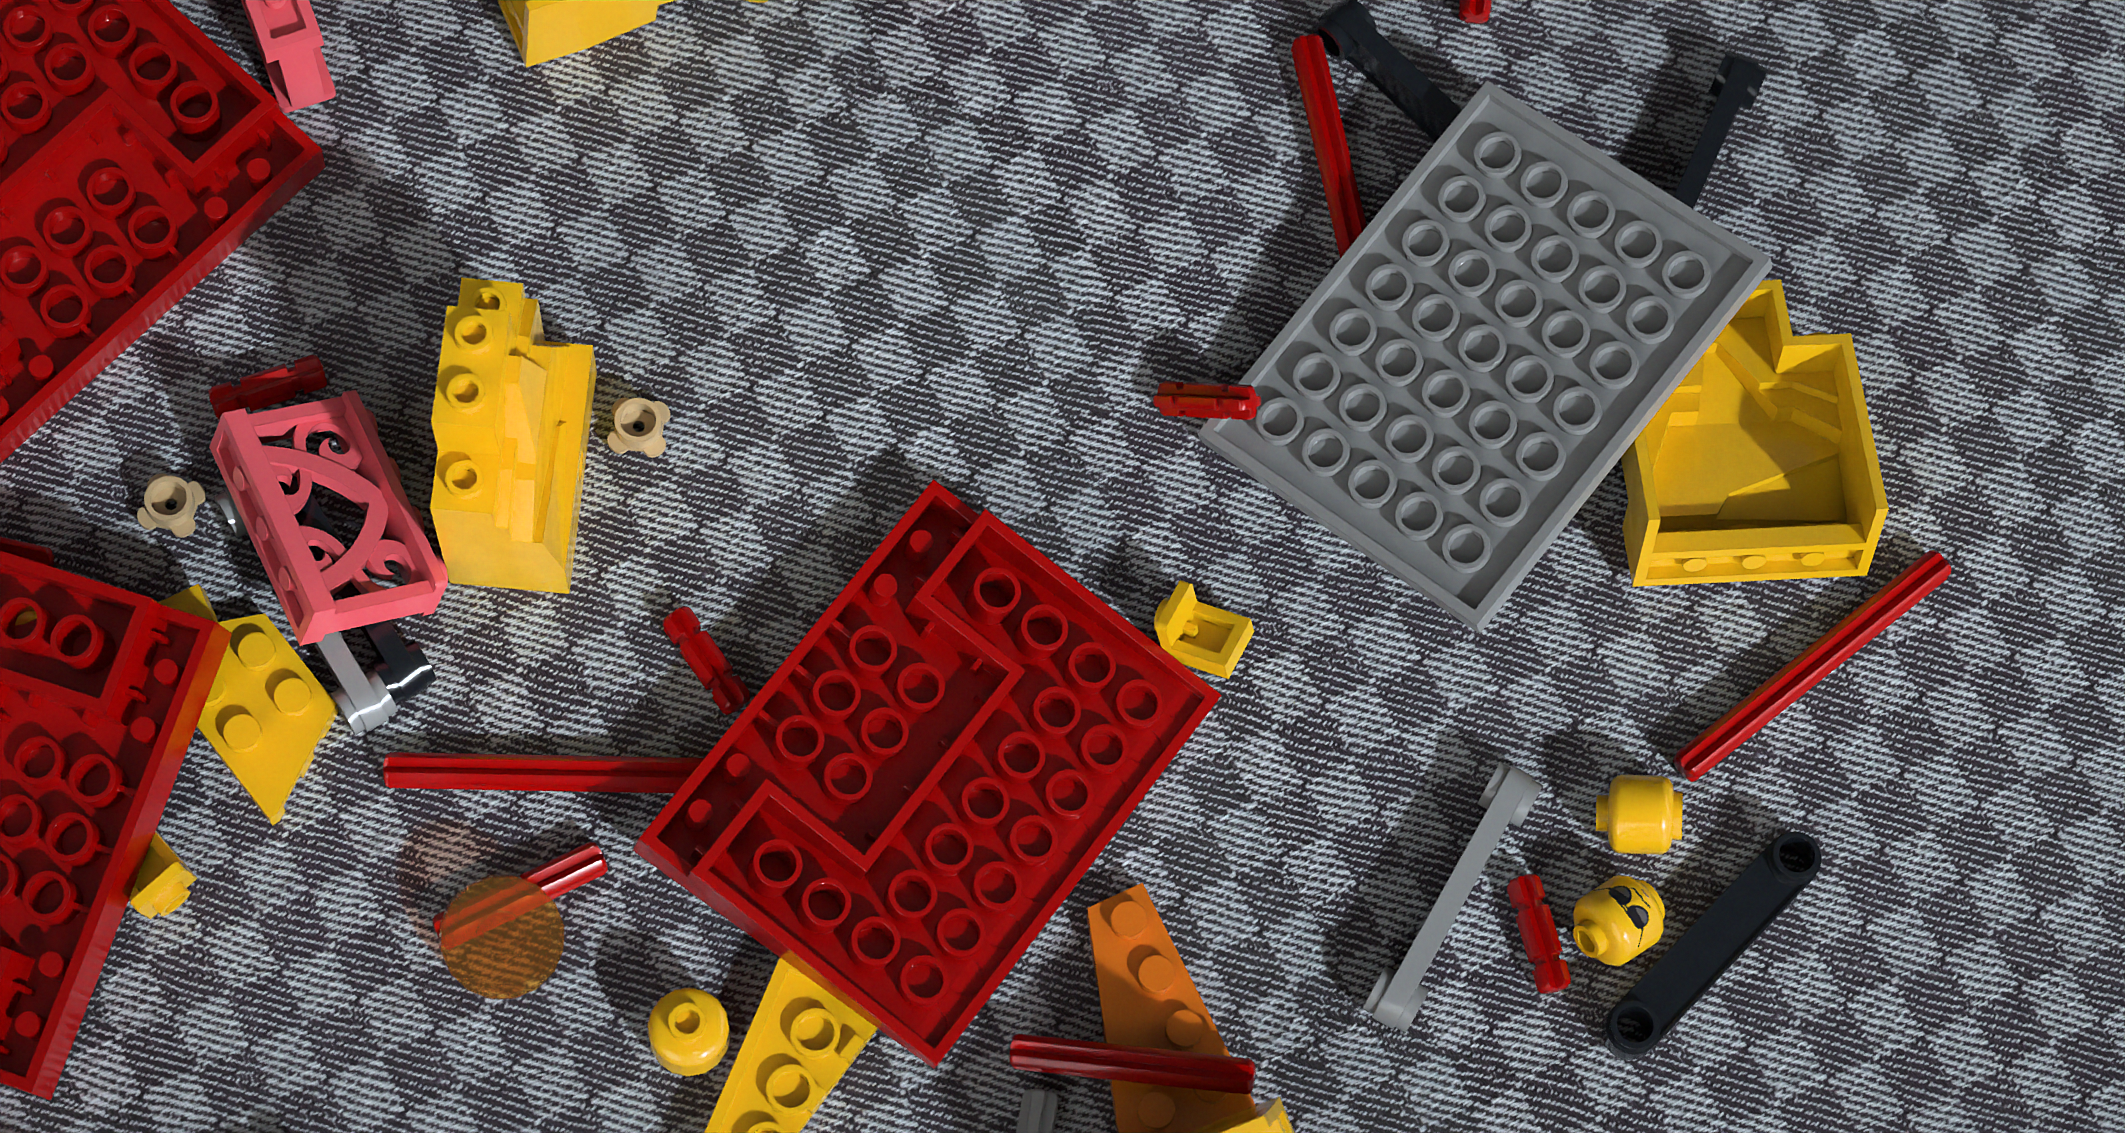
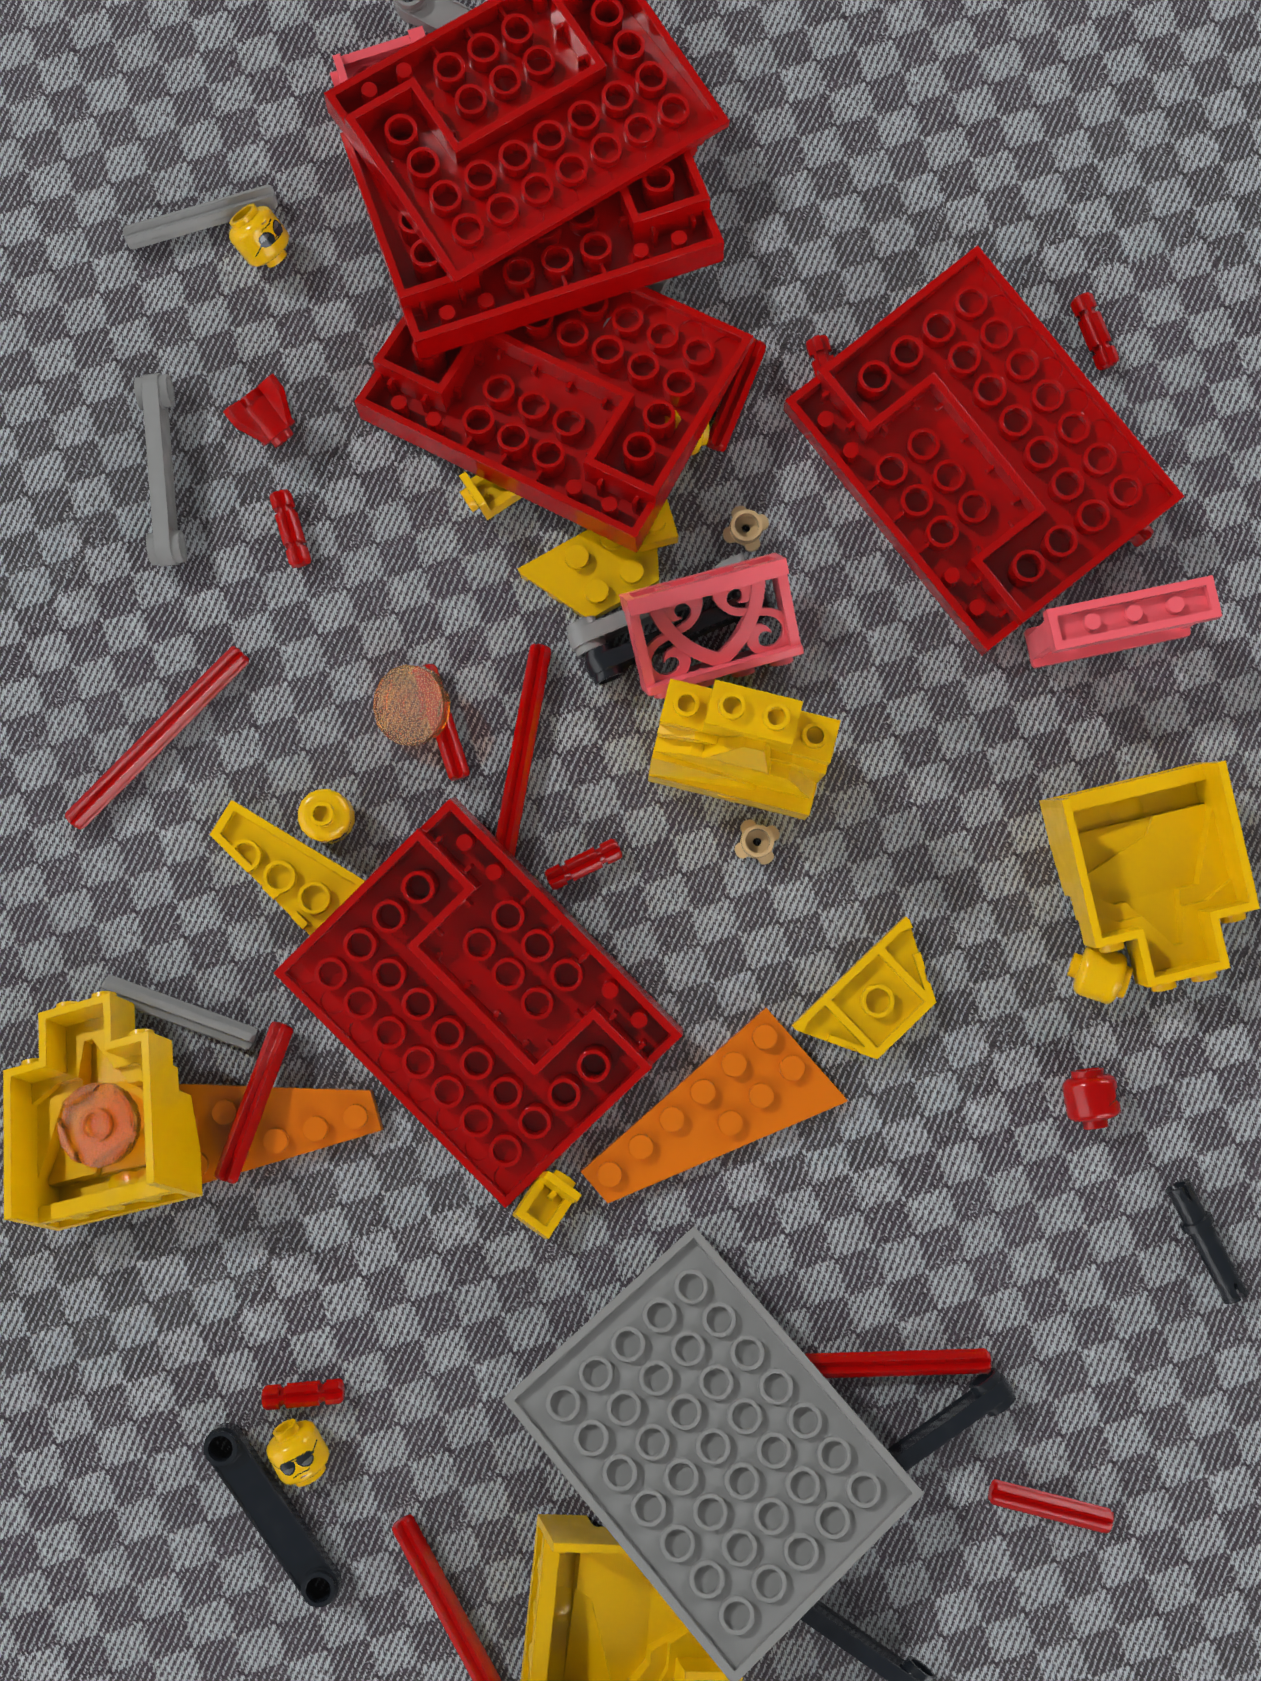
camera: 110 degrees right, 15 degrees up
(269, 386) = (821, 599): red axle -> none
(837, 241) = (874, 998): none -> yellow wing
(1012, 412) = (730, 1100): none -> orange wing
(1207, 400) = (713, 1237): red axle -> none
(1398, 994) = (395, 1392): light grey piece -> none
(1640, 814) = (368, 1484): yellow head -> none

